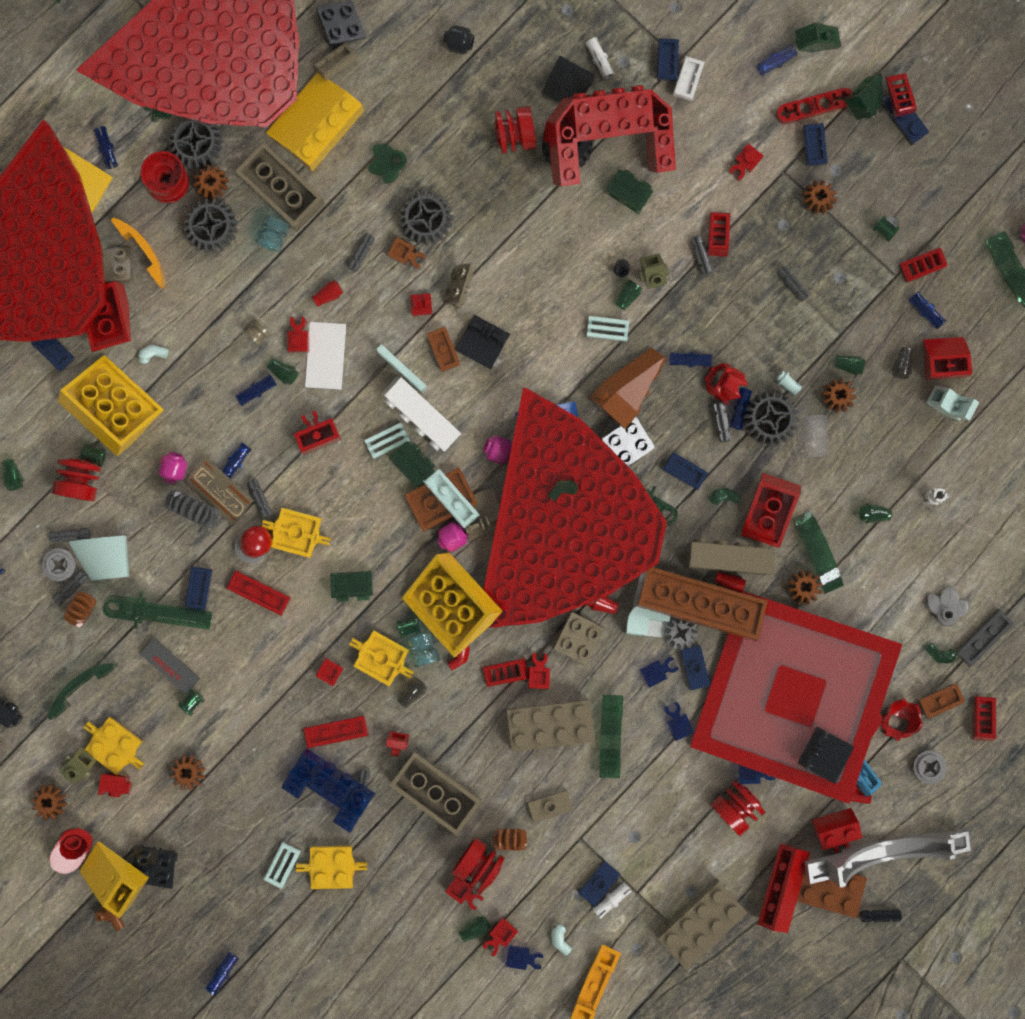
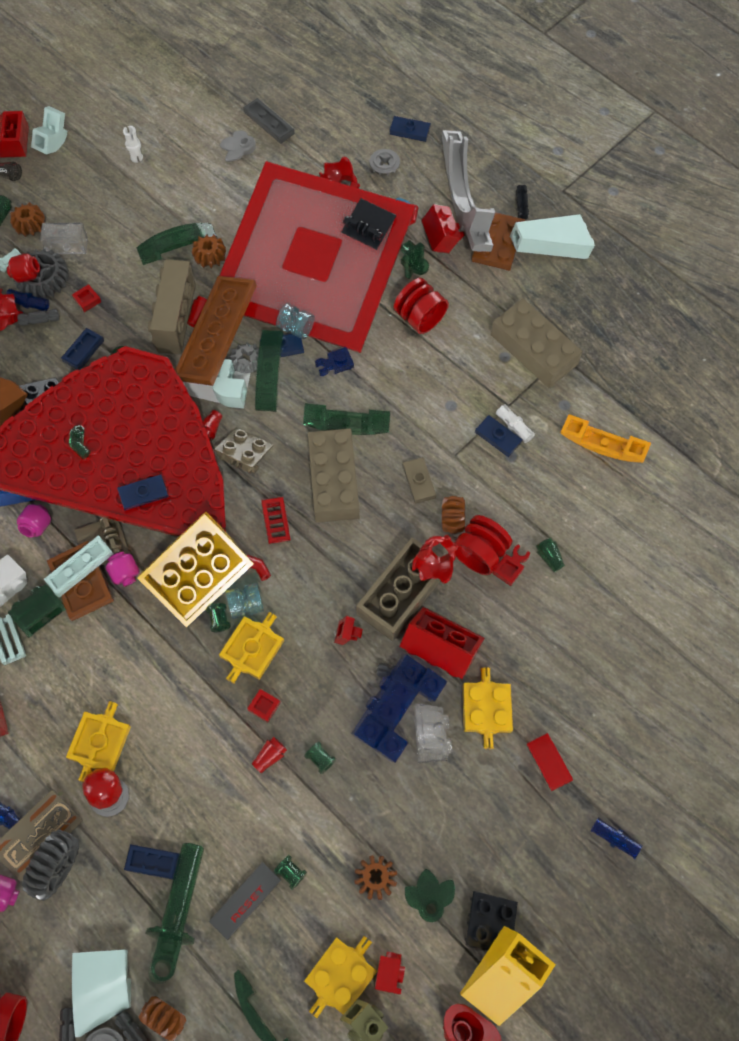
camera: 85 degrees left, 20 degrees down
(104, 914) = (553, 983): dark orange arm -> none
(178, 817) = (430, 892): none -> clear green plate
(258, 593) = (165, 790): red tile -> none
(259, 498) = (56, 784): dark grey axle -> none
(284, 920) = (549, 762): none -> red slope
(285, 723) = (320, 757): none -> clear green bush
(287, 679) = (270, 753): none -> red cone
(289, 849) = (500, 783): light aqua tile -> none
(304, 818) = (431, 733): none -> clear slope
(335, 731) = (333, 702): red tile -> none
(352, 585) = (165, 678): clear green brick -> none
(388, 828) = (441, 642): none -> red slope
(412, 692) = (291, 614): clear smoke cone -> none
(451, 822) = (432, 566): none -> red helmet
(502, 934) = (556, 528): red plate -> none
(519, 551) = (142, 492): none -> dark blue plate
(519, 957) = (578, 511): clear blue plate -> none
(538, 675) = (281, 486): red plate -> none
(557, 939) = (557, 474): light aqua arm -> none
(655, 672) = (287, 382): clear blue plate -> none
(664, 658) = (268, 370): none -> clear green slope
(715, 682) = (297, 322): none -> clear light blue wheel
(723, 494) = (110, 316): clear green arm -> none
(744, 467) = (86, 298): none -> red plate
(750, 776) = (388, 298): clear blue plate -> none
(766, 405) = (23, 268): none -> red head
(771, 510) = (129, 275): red slope -> none
(783, 888) = (498, 272): red brick -> none
(793, 802) = (414, 259): none -> clear green hips
(830, 950) = (553, 236): none -> light aqua slope
(872, 513) = (144, 196): clear green cone -> none
(941, 656) = (283, 151): clear green arm -> none
(941, 701) = (323, 149): dark orange plate -> none
(976, 735) = (353, 123): red slope -> none
(977, 794) = (410, 128): none -> dark blue plate

